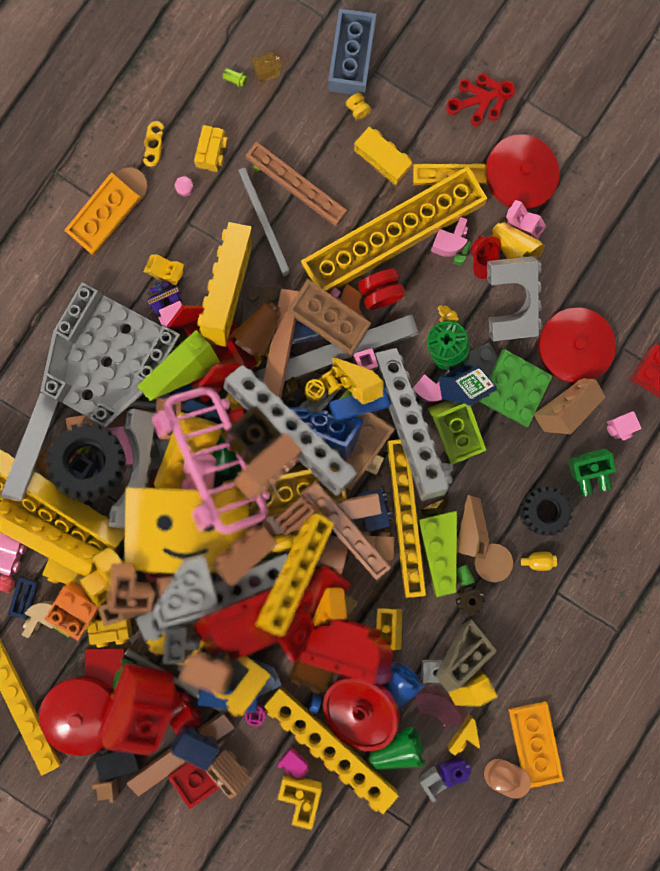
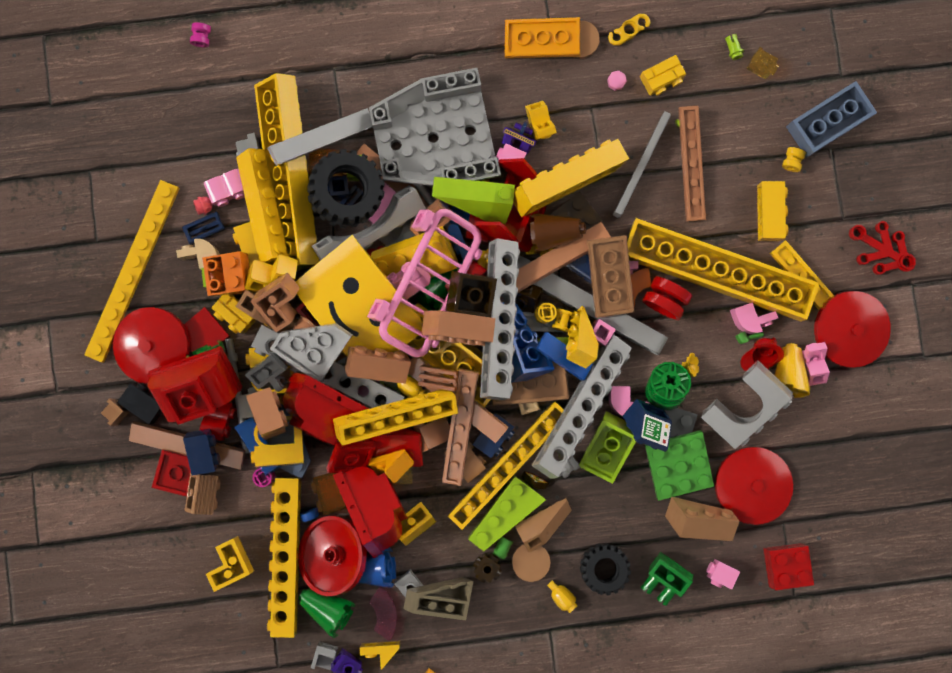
camera: 40 degrees right, 0 degrees up
(294, 763) = (251, 537): dark pink brick -> none
(474, 691) = (420, 627): yellow slope -> none

